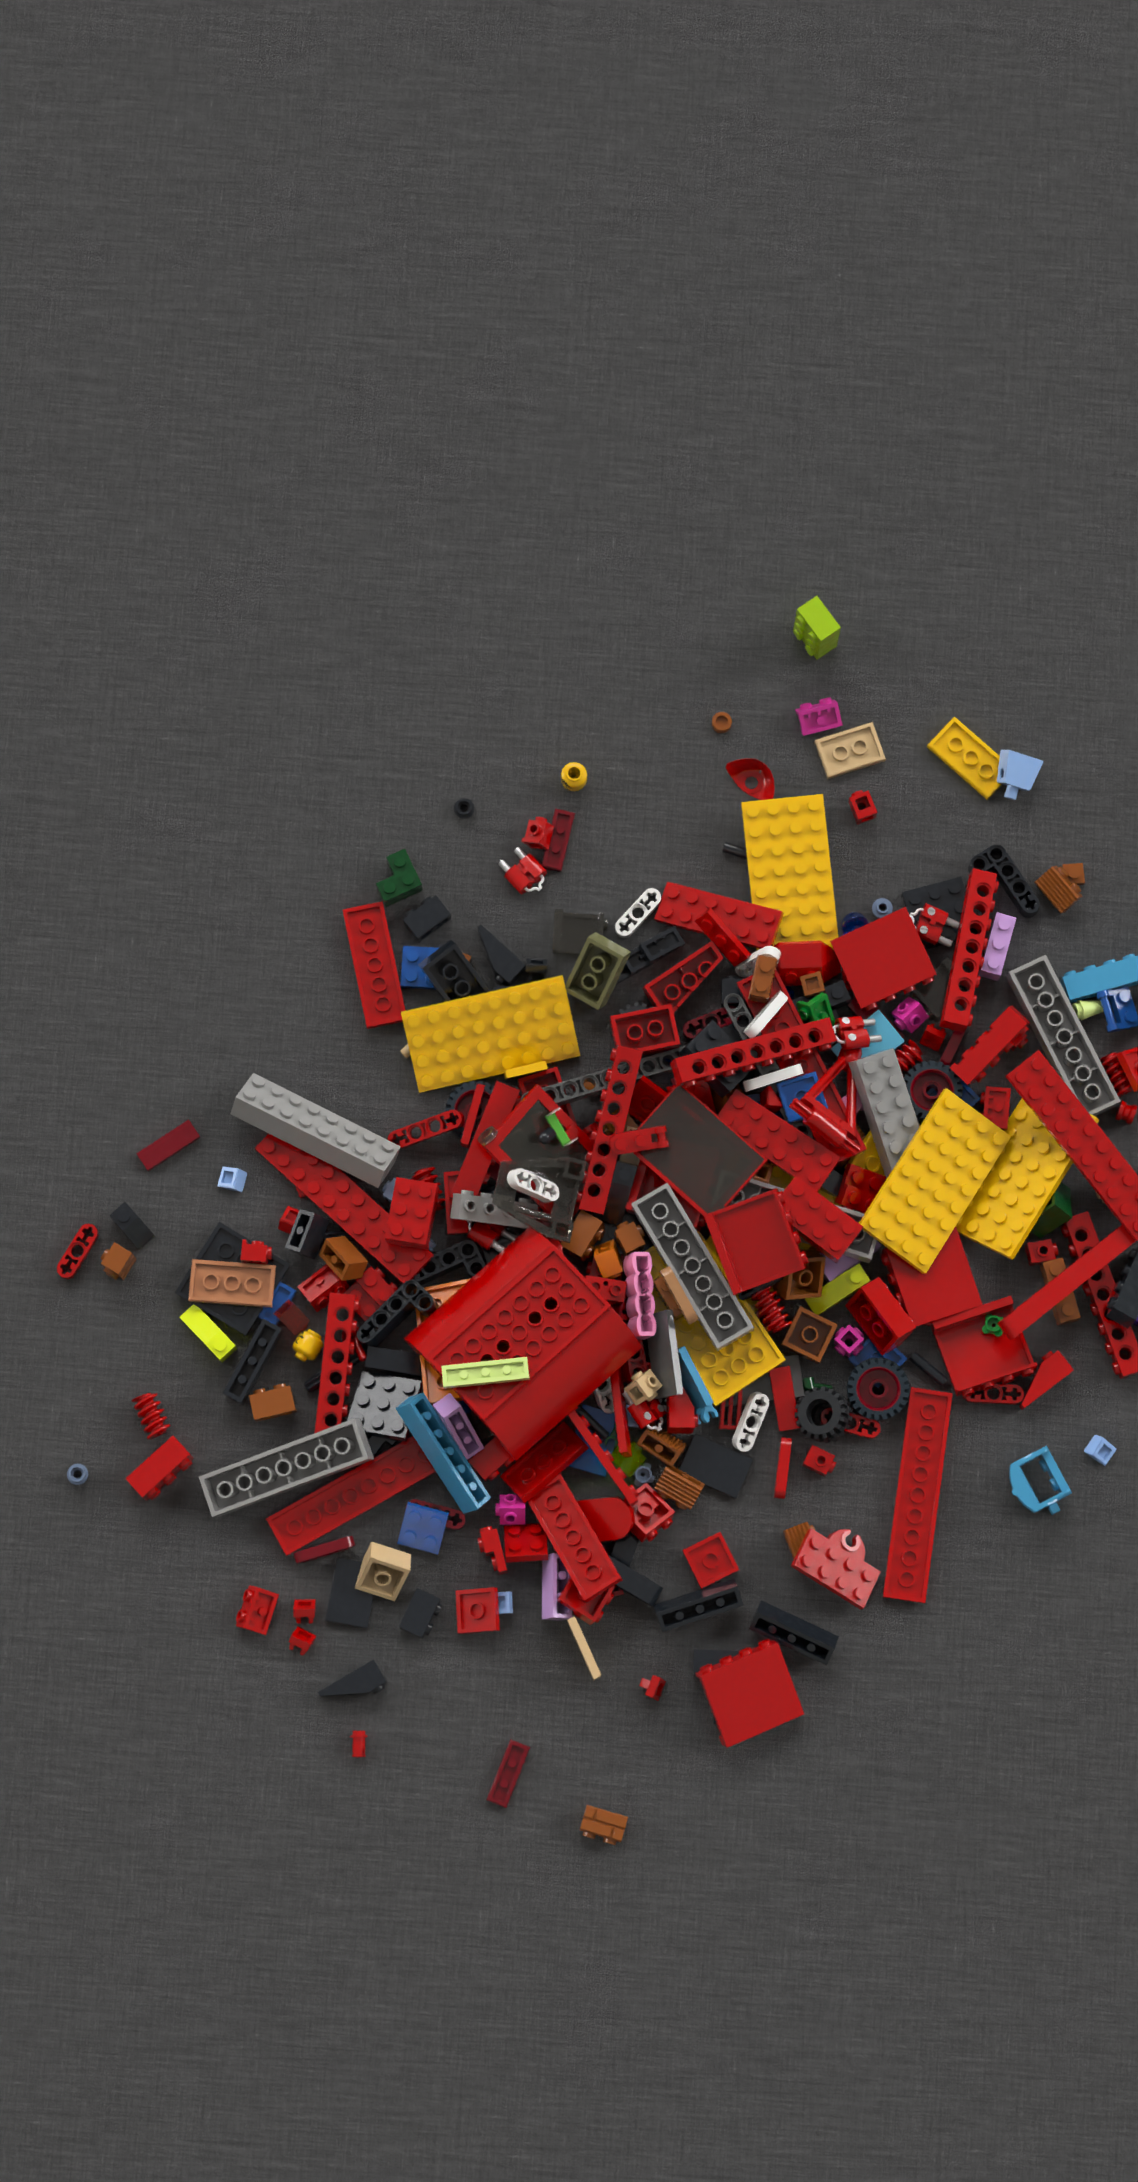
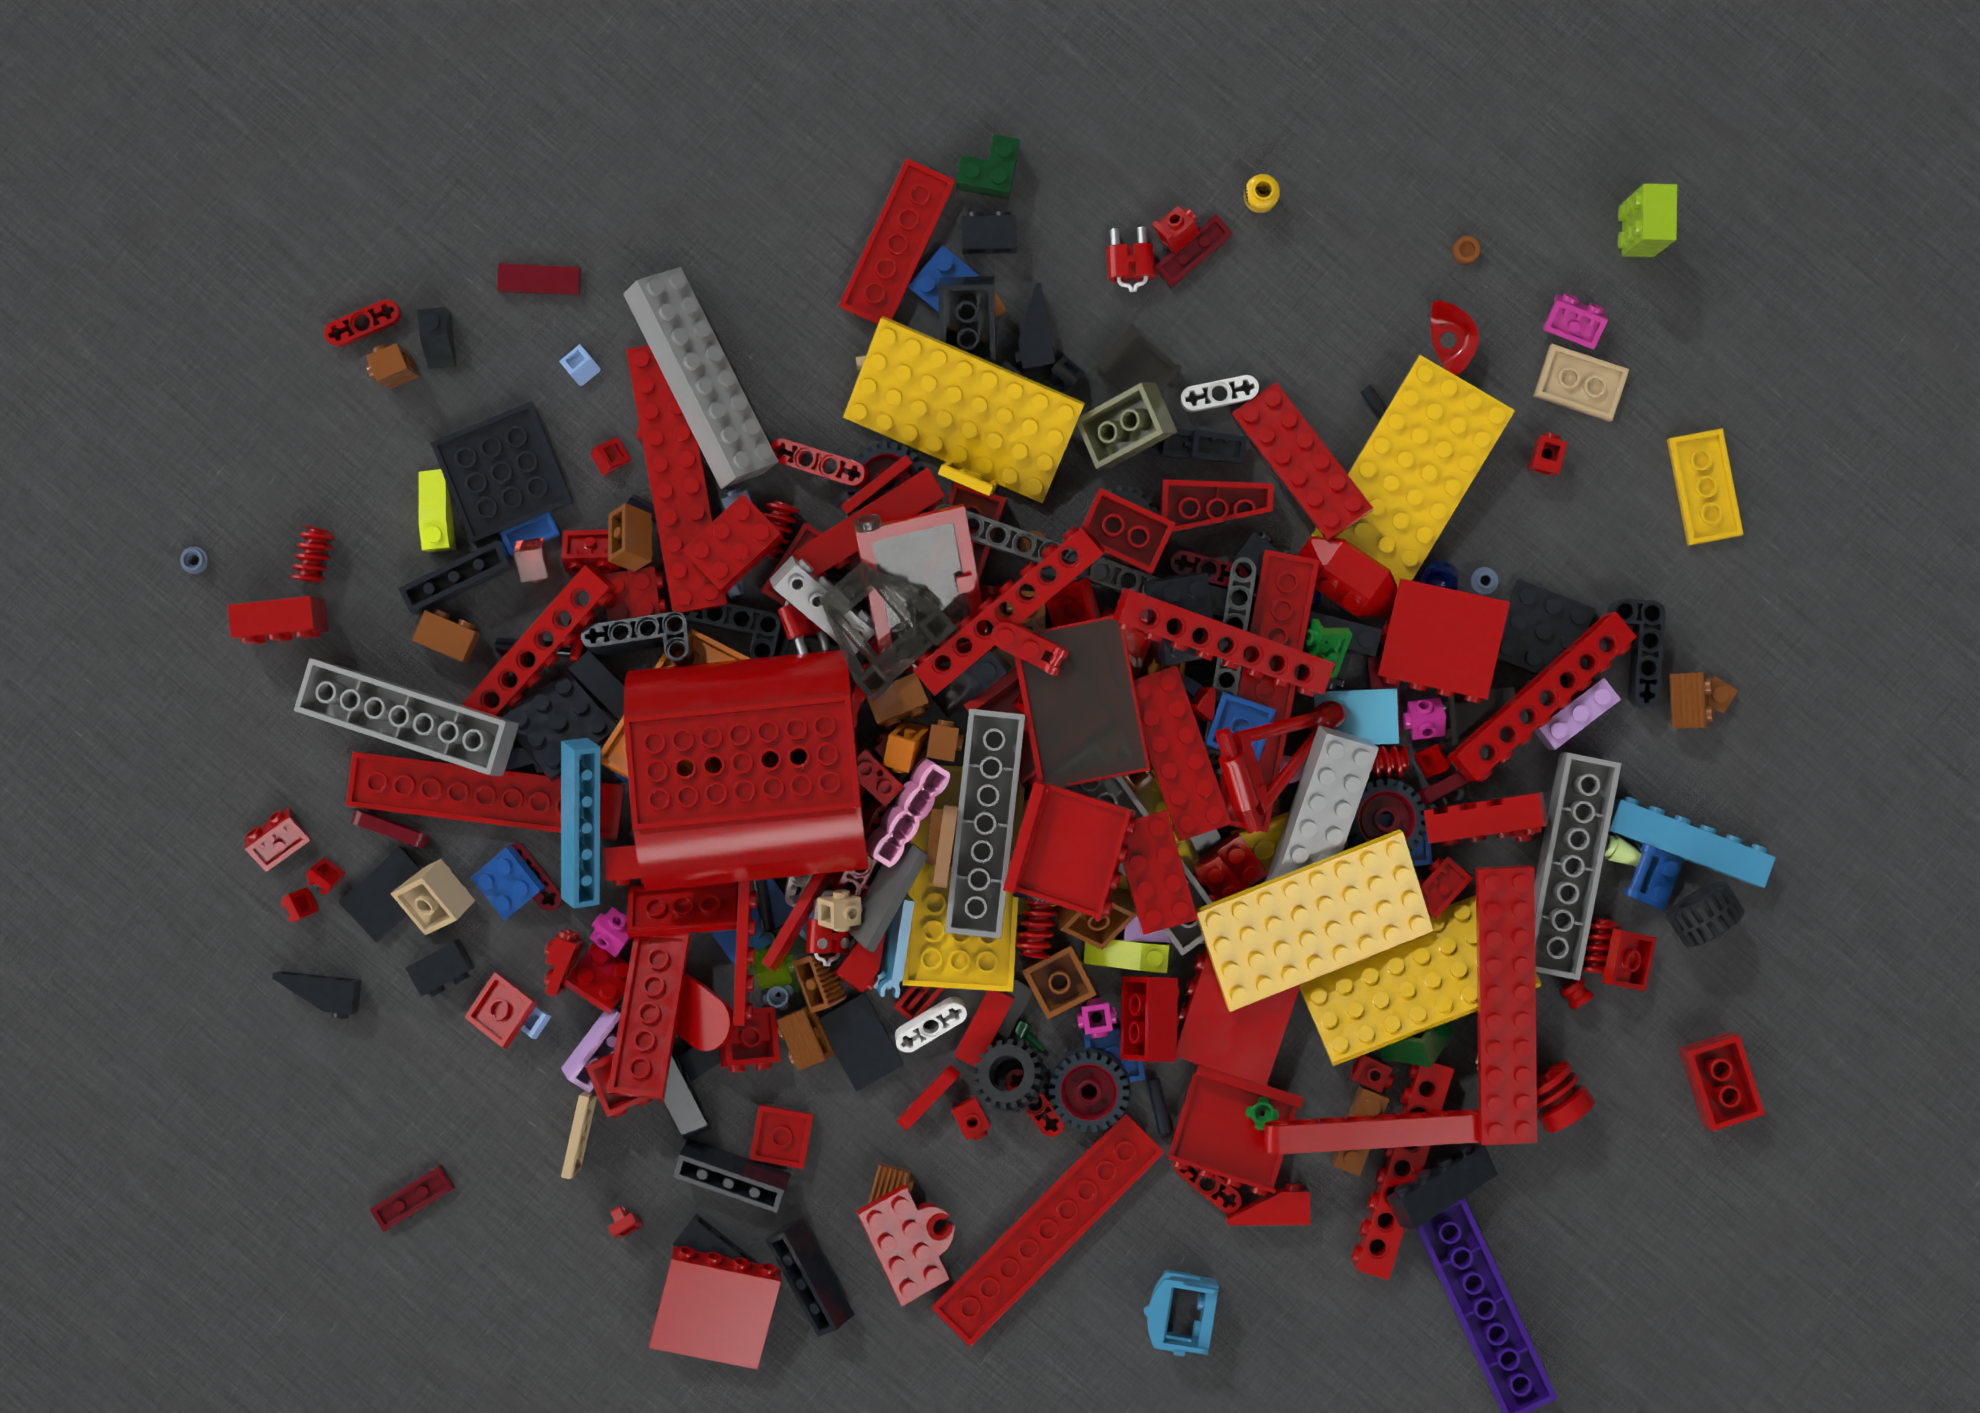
camera: 40 degrees right, 10 degrees up
(232, 1283) = (495, 477): nougat tile -> none
(255, 1252) = (541, 463): red brick -> none
(307, 1234) = (612, 483): black brick -> none
(307, 1345) = (527, 601): yellow head -> none
(358, 1743) = (285, 1048): red pin -> none
(458, 1425) = (613, 808): lavender brick -> none
(464, 802) = (1118, 133): black plate -> none
(485, 1372) = (670, 781): yellowish green plate -> none
(525, 1186) = (868, 607): white beam -> none
(555, 1131) = (949, 570): piece -> none
(604, 1824) = (469, 1324): dark orange brick -> none
(722, 937) = (1287, 488): red plate -> none
(747, 967) = (1306, 542): white beam -> none
(762, 979) = (1295, 567): dark orange brick -> none
(766, 1014) = (1268, 610): white beam -> none
(773, 1077) = (1225, 683): white beam -> none
(812, 984) = (1345, 611): dark orange plate -> none
(853, 1032) = (1349, 696): red piece -> none
(931, 924) = (1523, 638): red piece -> none
(1017, 772) = (1744, 540): light blue torso -> none
(1100, 1449) = (1274, 1322): light blue slope -> none

